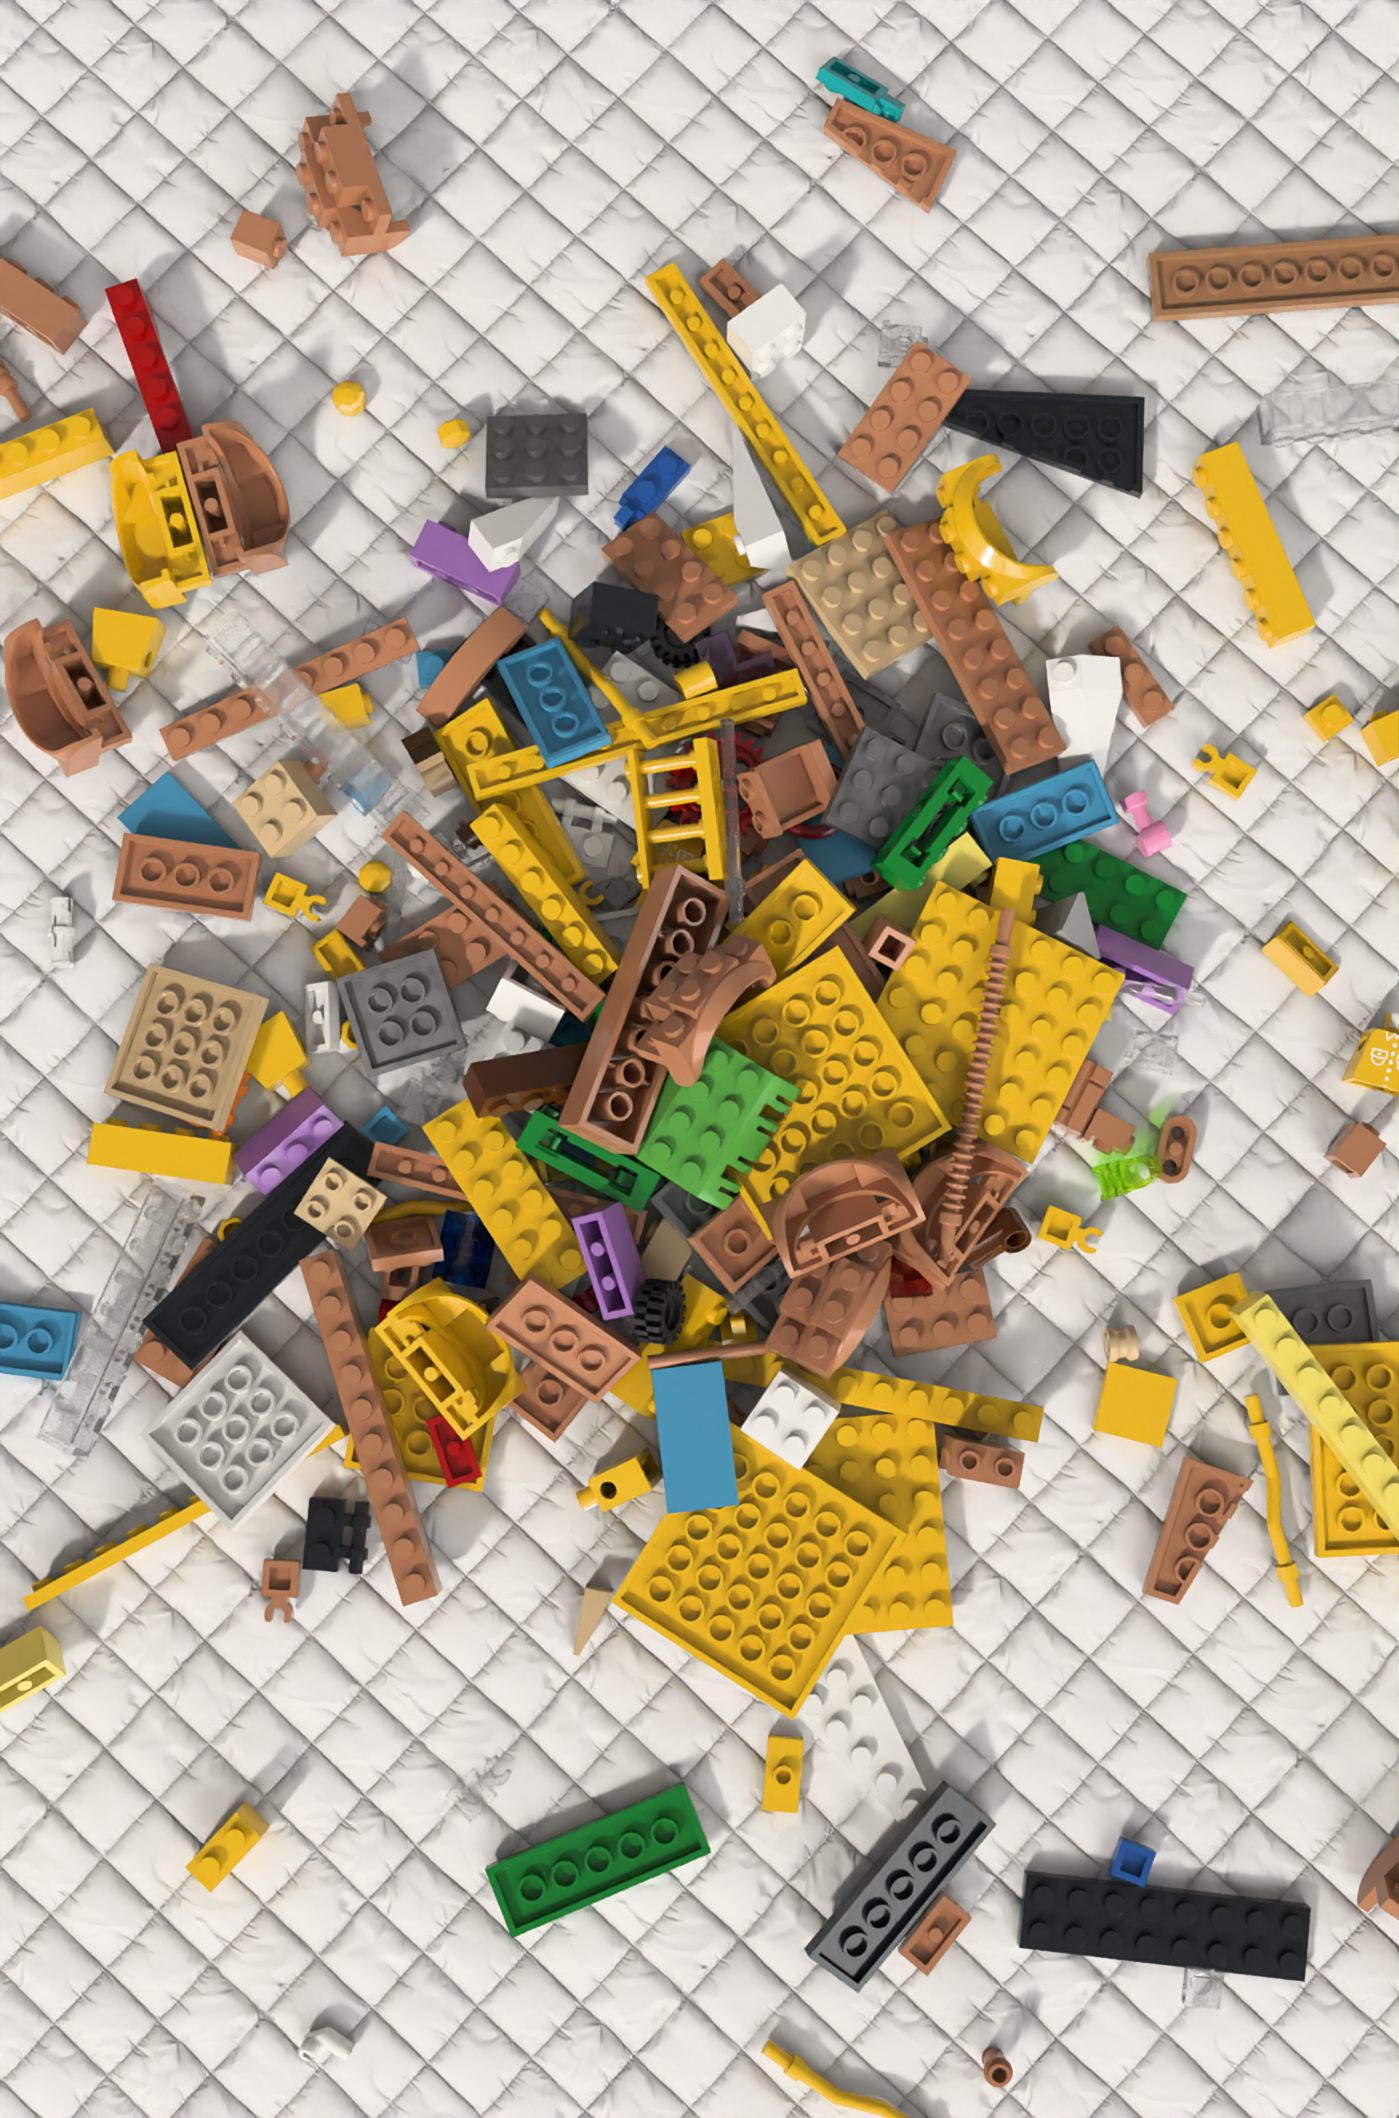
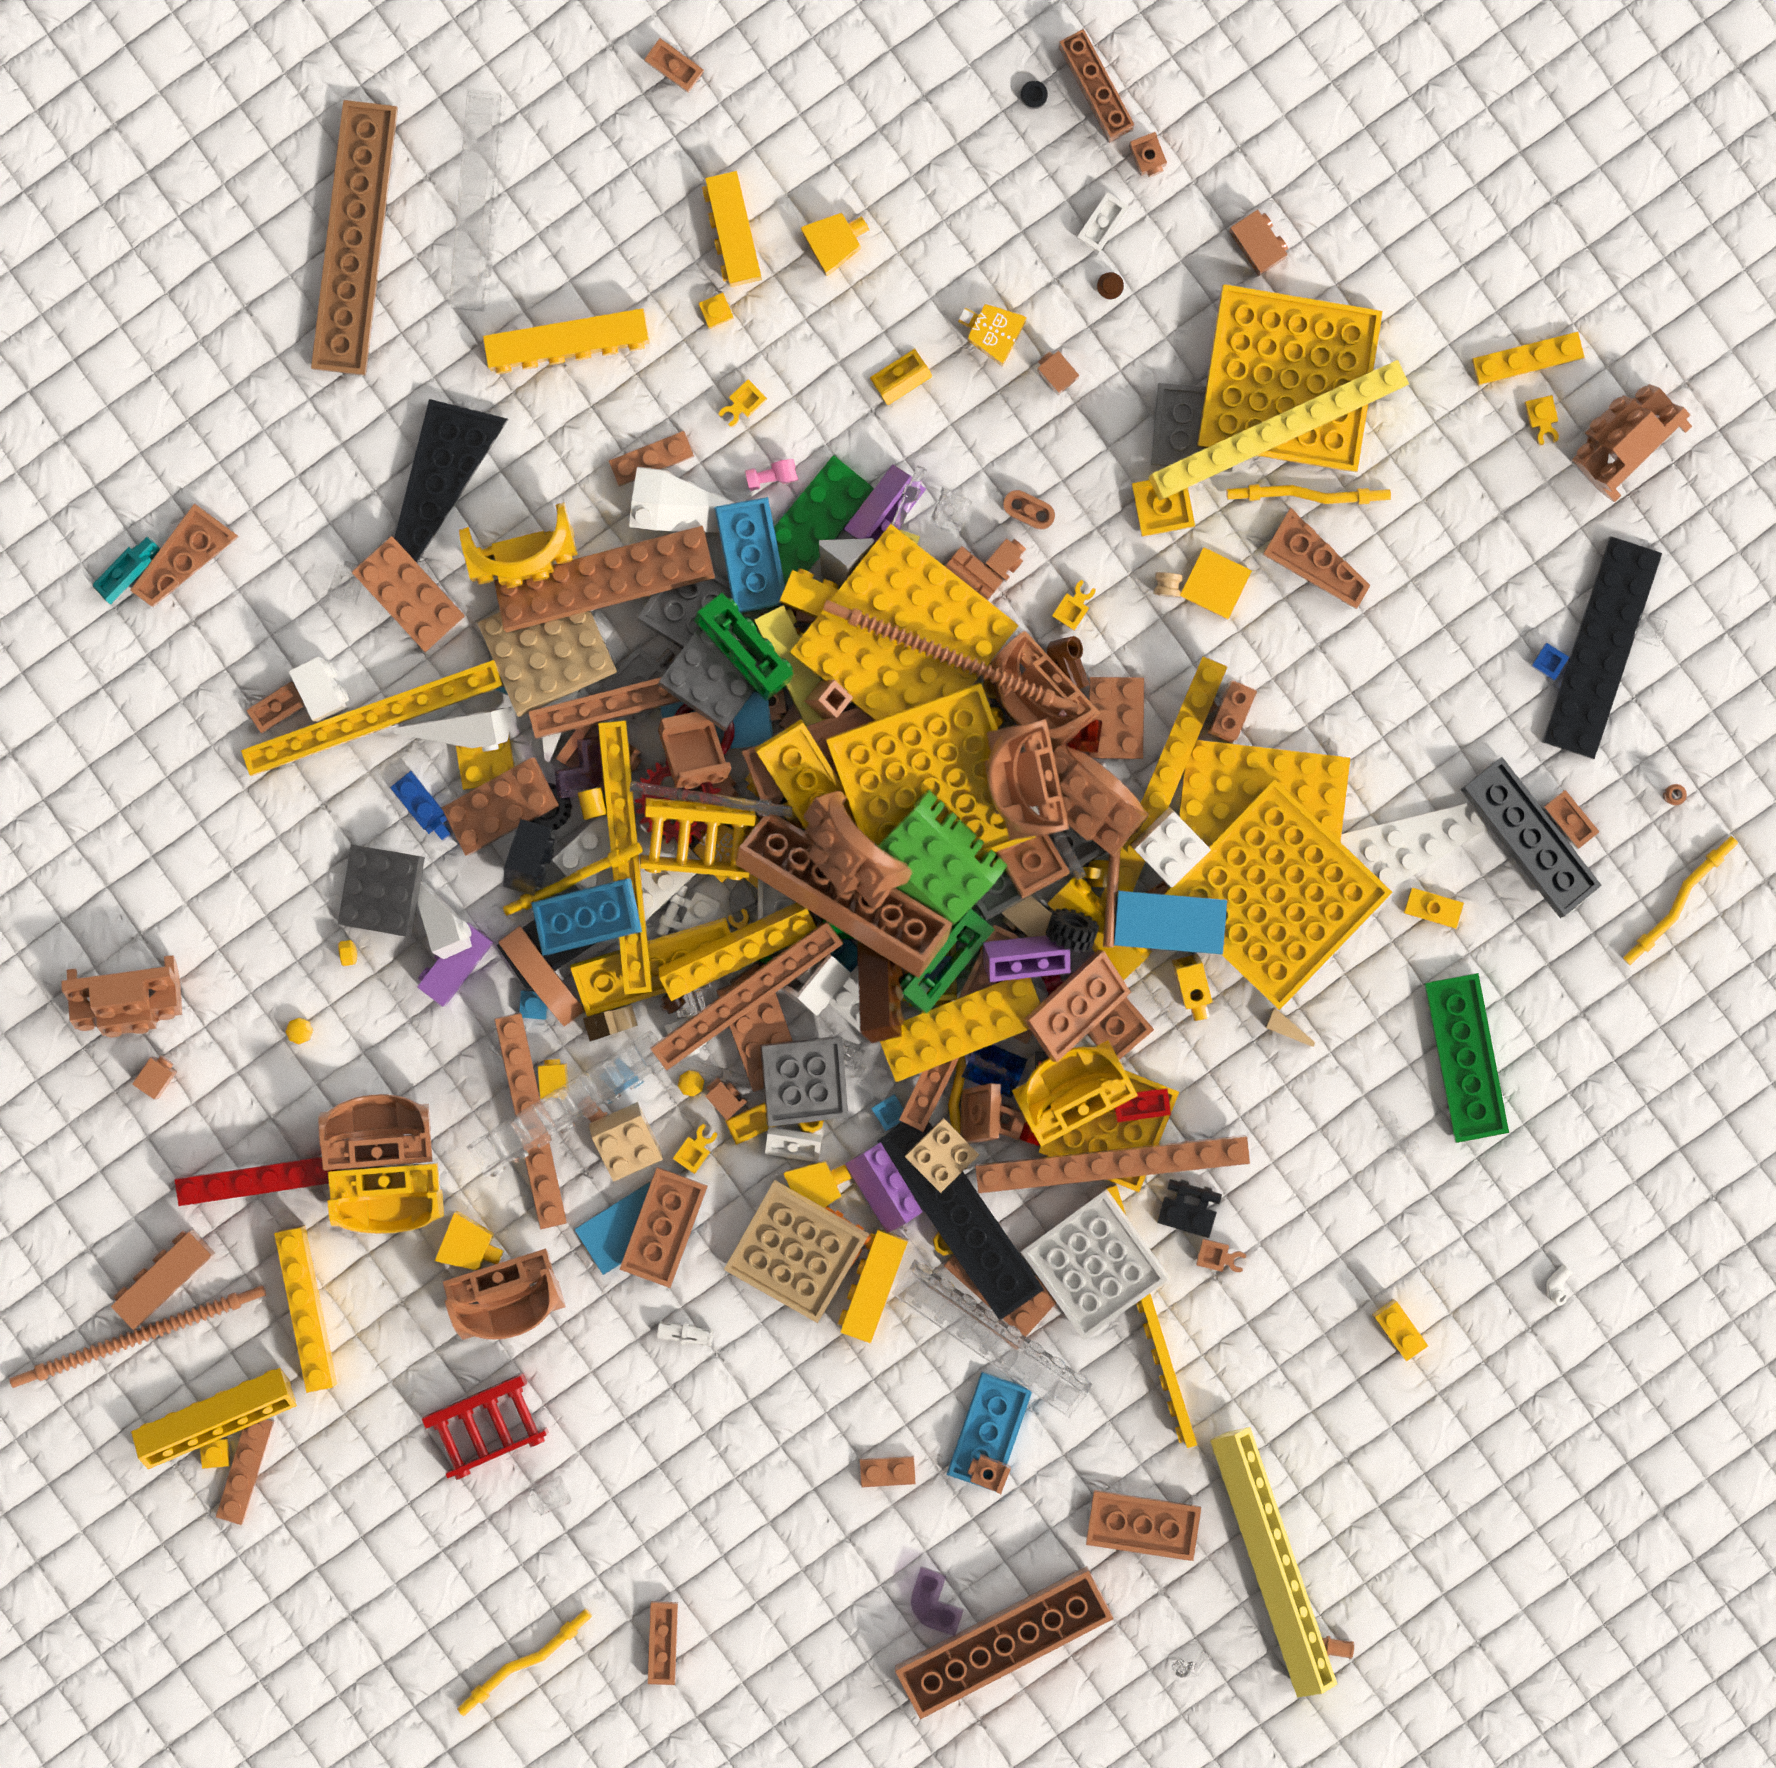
camera: 75 degrees left, 5 degrees up
(1121, 1176) = (1041, 554): clear neon green piece -> none

